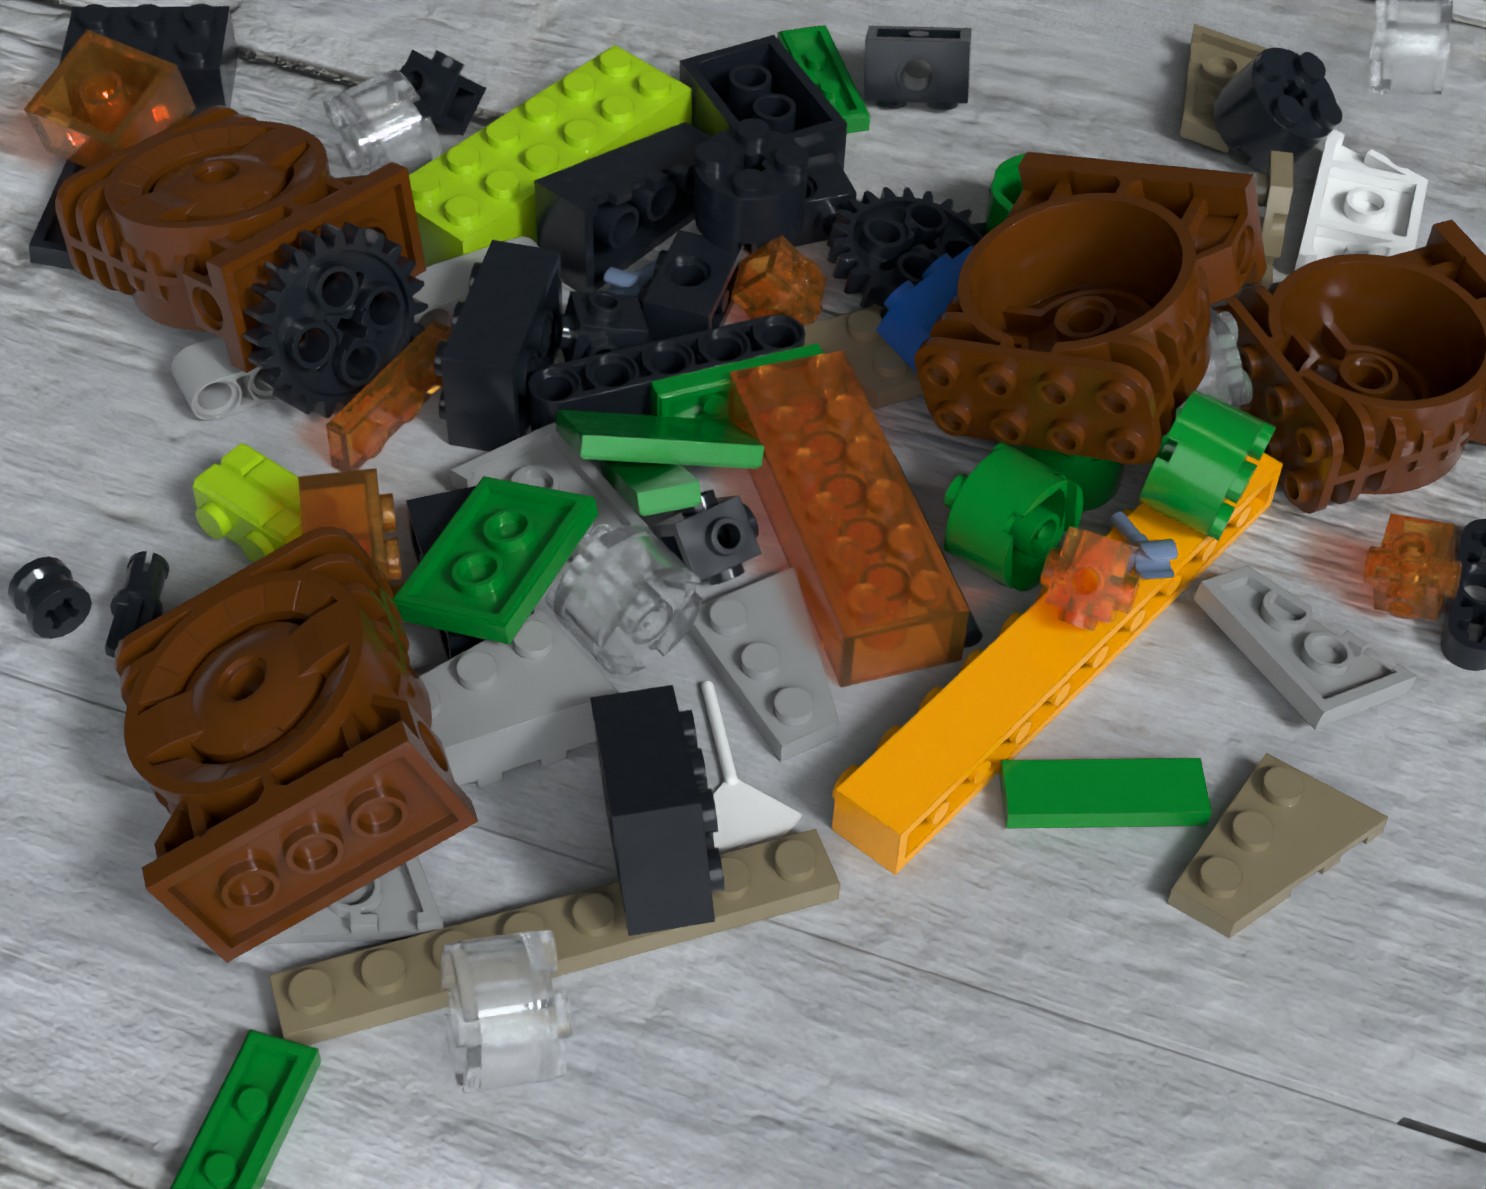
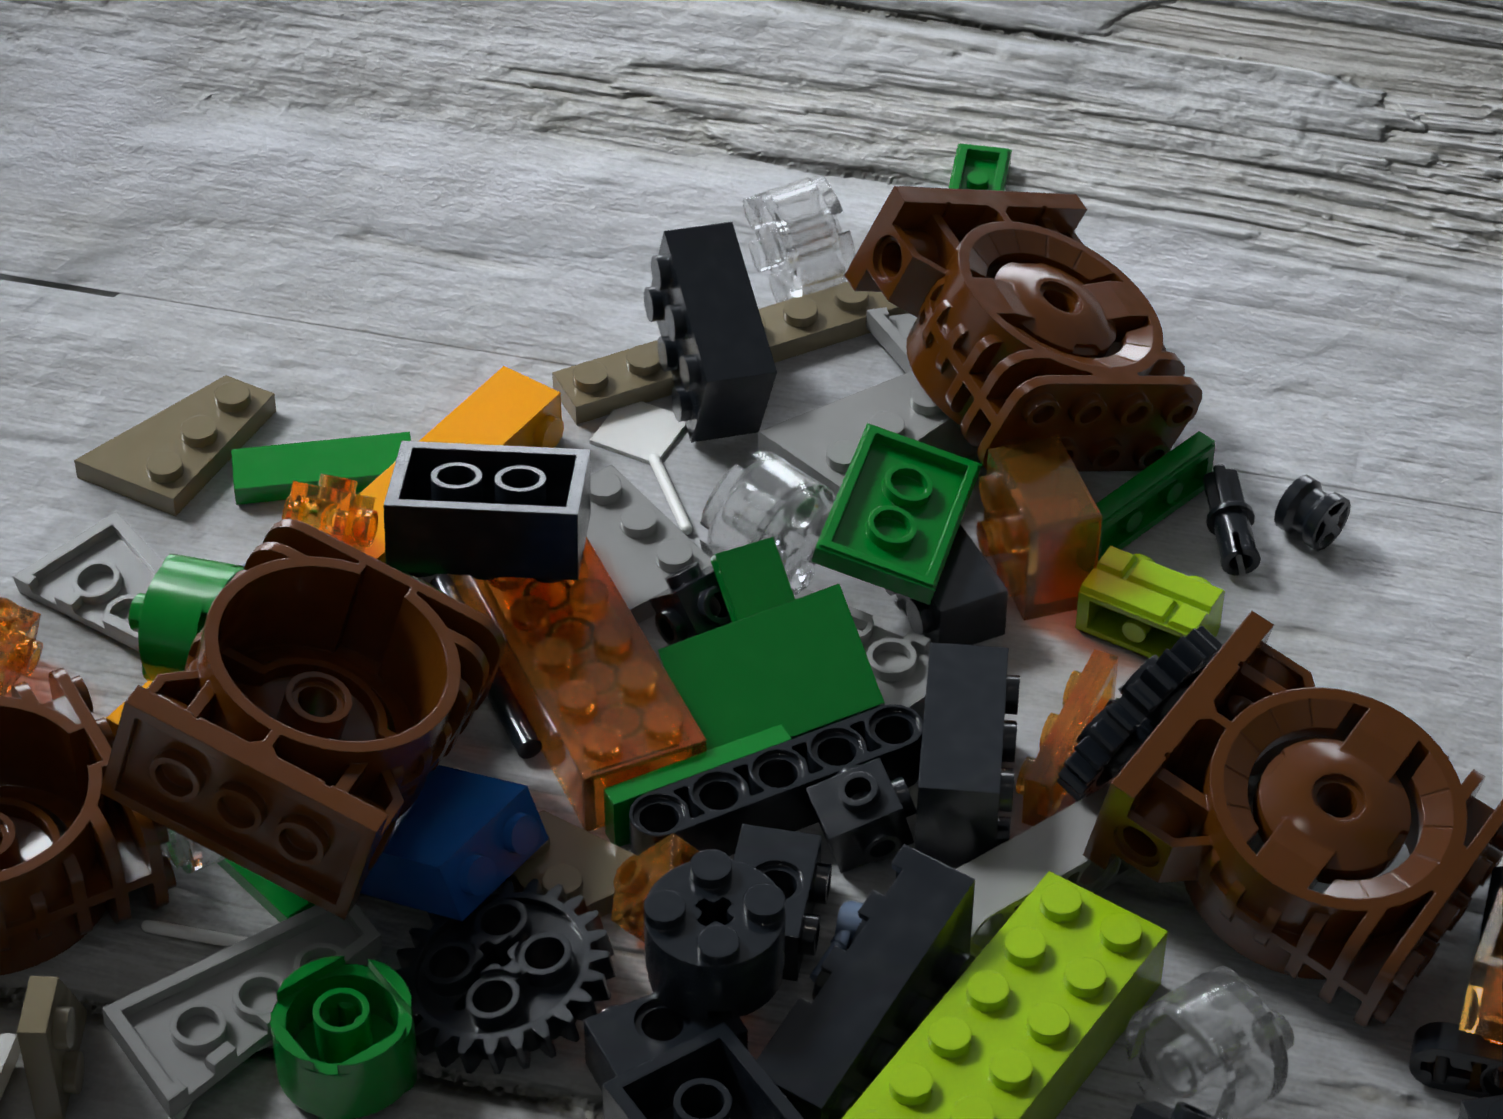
camera: 175 degrees right, 5 degrees down
(926, 513) = (488, 511): none -> black brick

